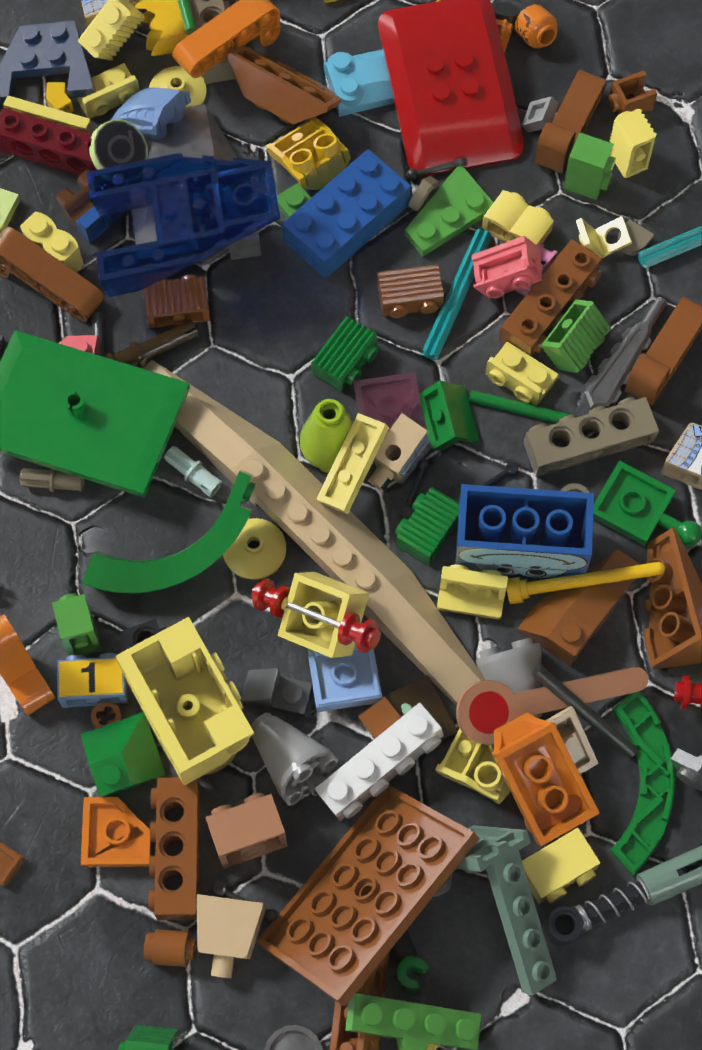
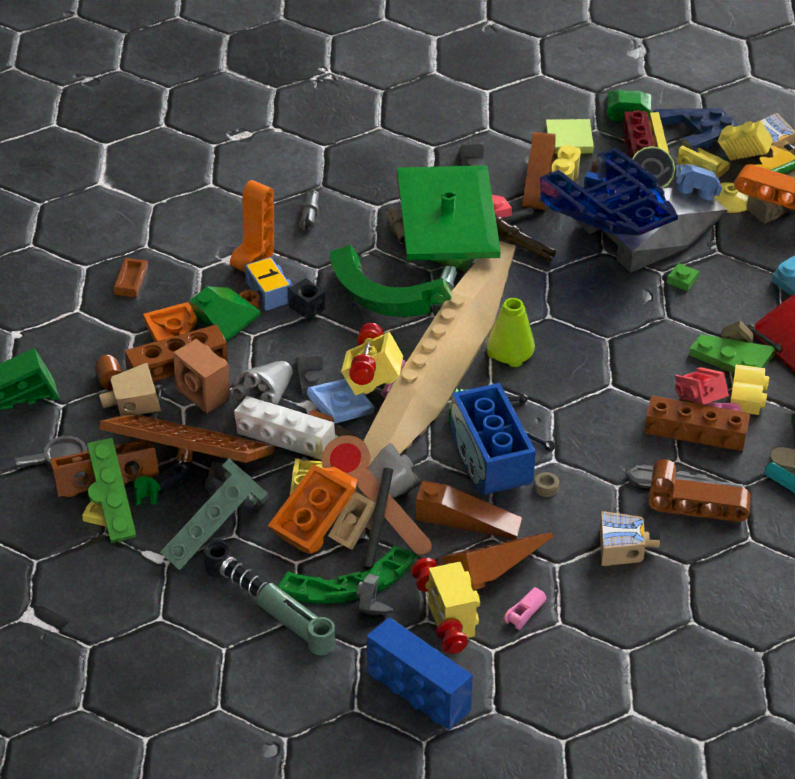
camera: 65 degrees right, 25 degrees down
(58, 97) = (675, 142): yellow piece -> none
(76, 625) = (299, 257): bright green brick -> none
(177, 301) = (565, 239): dark orange brick -> none
(187, 700) = (267, 312): light yellow brick -> none
(263, 560) = (407, 333): light yellow dish -> none
(279, 87) = (767, 234): dark orange wedge -> none
(311, 154) = (723, 270): yellow slope -> none
(345, 354) = (579, 331): green brick -> none
(346, 213) = (689, 298): blue brick -> none
(352, 463) = (491, 344): light yellow plate -> none
(387, 397) = (555, 363): clear pink plate -> none
(403, 441) = (520, 374): tan torso -> none
(410, 290) = (652, 349): dark orange brick -> none
(448, 415) = (570, 399): green panel -> none
(455, 297) = (635, 376): teal axle -> none
(472, 592) = (438, 443): light yellow bracket -> none
(516, 407) = (602, 443): green bar -> none
(521, 374) = (627, 427): light yellow bracket -> none
(521, 589) = (455, 469): yellow piece -> none
(548, 458) = (599, 473): dark tan brick -> none
(560, 866) = (260, 544): light yellow brick -> none
(576, 336) = (673, 441): bright green brick -> none
(596, 240) = (764, 433): light yellow bracket -> none
(636, 504) = (561, 514): green plate -> none

